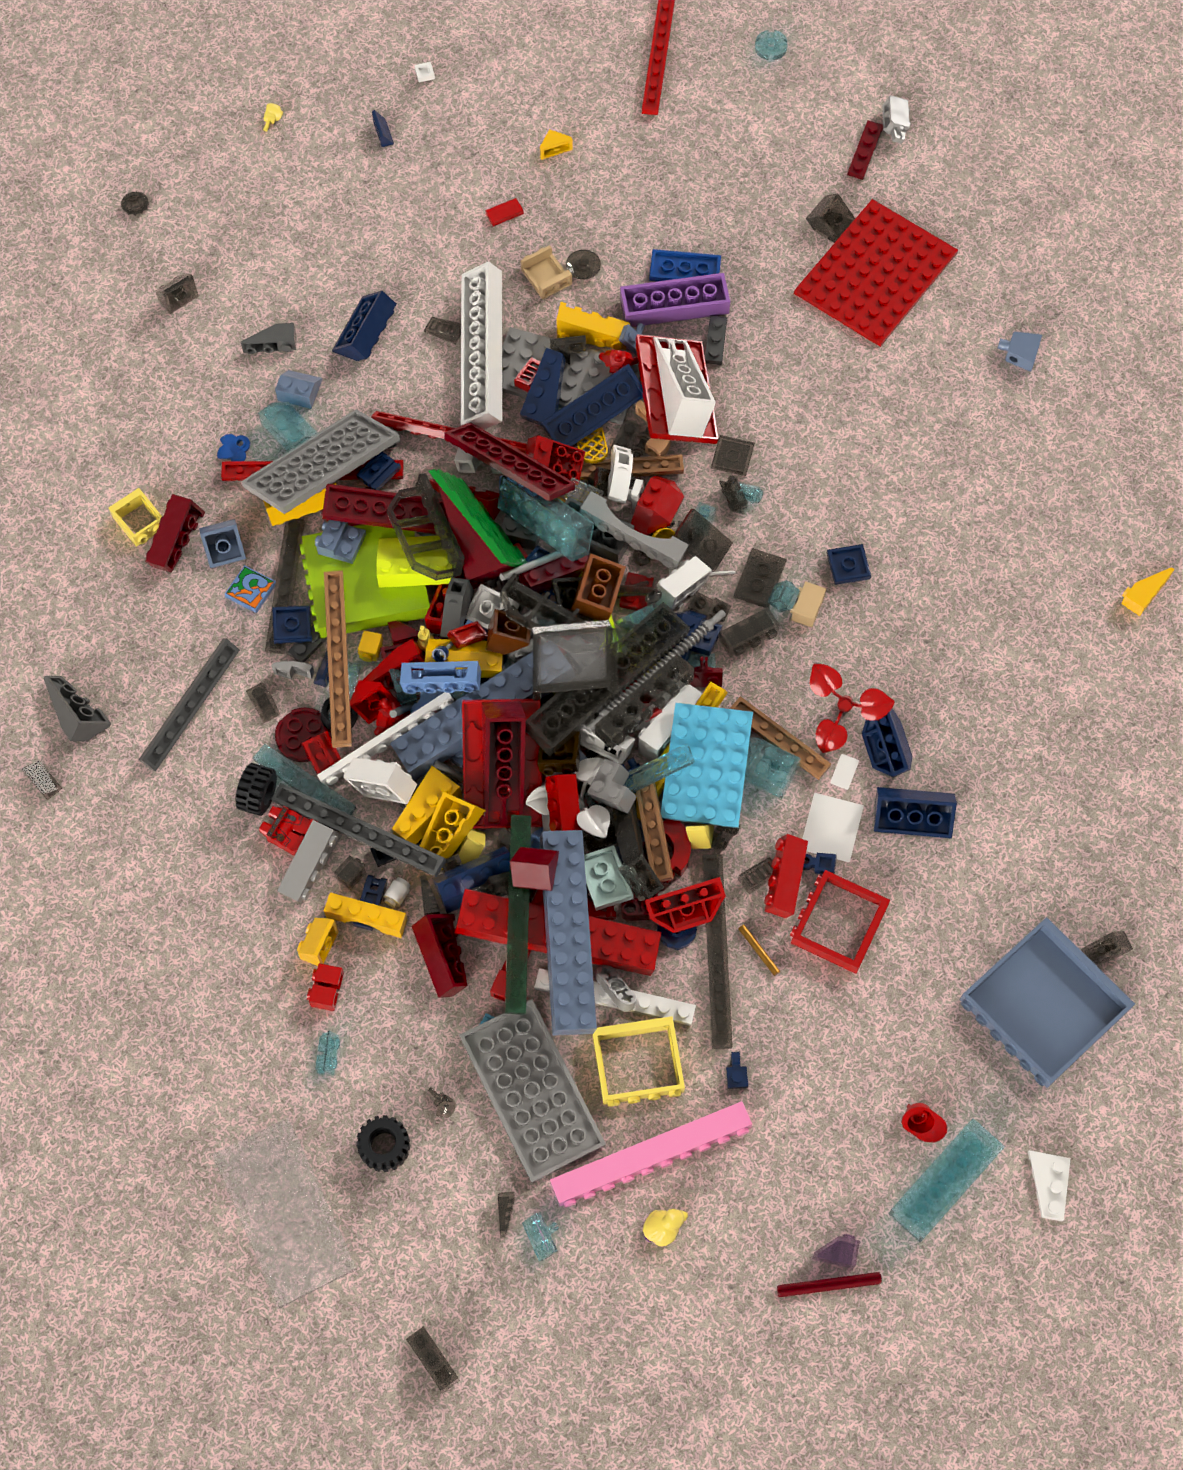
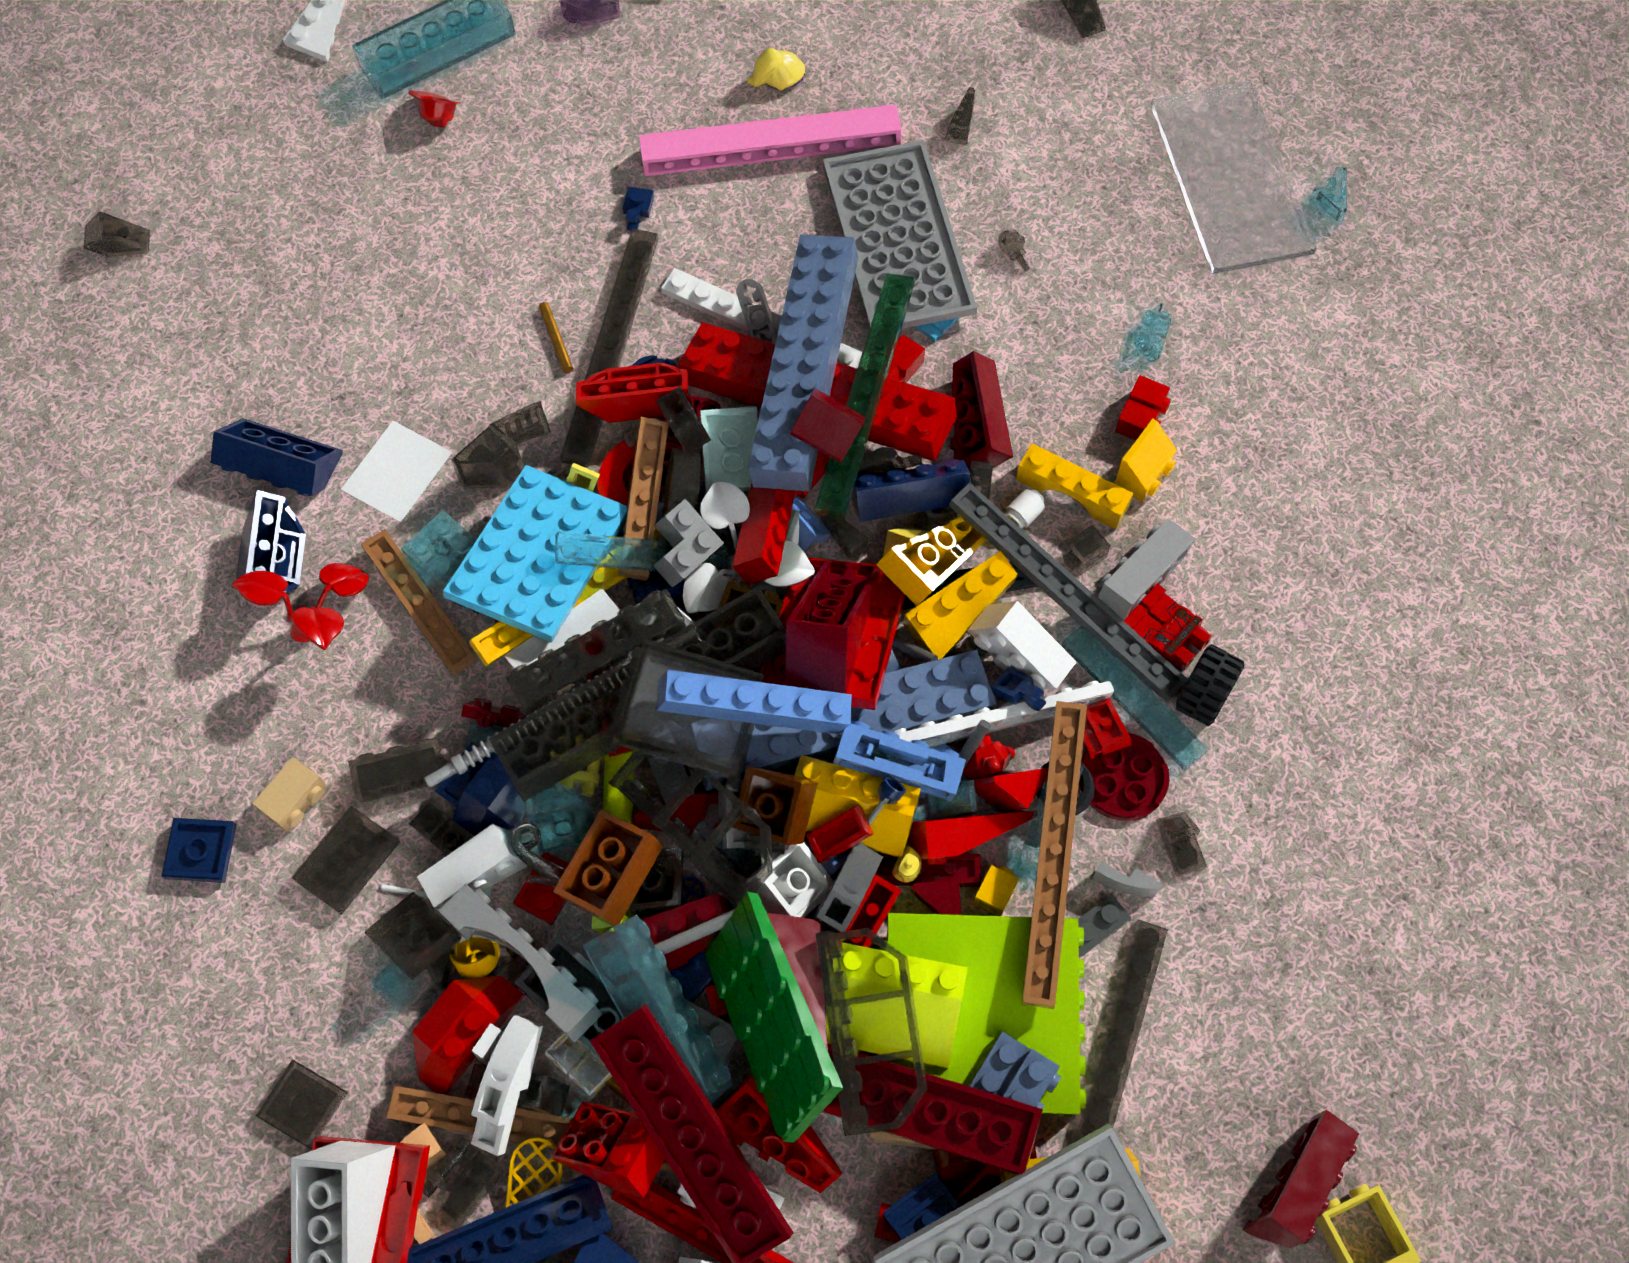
camera: 165 degrees left, 0 degrees up
(42, 779) = (1539, 797): clear smoke slope -> none
(74, 714) = (1485, 892): dark grey wedge -> none
(189, 705) = (1297, 864): dark grey plate -> none
(201, 1202) = (1332, 199): none -> clear light blue slope
(222, 543) = (1219, 1148): sand blue slope -> none
(250, 589) = (1179, 1050): tile -> none
(291, 624) = (1119, 954): dark blue plate -> none
(322, 676) = (1080, 867): dark blue slope -> none
(372, 896) = (1061, 511): dark blue plate -> none
(378, 1127) = (1096, 230): black tyre -> none
(379, 751) = (1015, 685): none -> dark blue plate
(532, 664) = (753, 702): none -> medium blue brick
(540, 1236) = (927, 86): clear light blue plate -> none
(636, 1028) = (750, 203): light yellow window -> none
(736, 501) = (330, 1032): clear smoke hinge -> none
(752, 493) = (301, 1019): clear light blue cone -> none
(765, 833) = (488, 461): none -> clear smoke slope
(783, 596) = (321, 811): clear light blue brick -> none
(786, 876) = (485, 403): red brick -> none
(822, 862) = (430, 418): dark blue plate -> none
(824, 952) = (409, 315): red window -> none
(844, 771) = (346, 540): white sticker -> none
(1046, 1002) = (224, 196): sand blue panel -> none

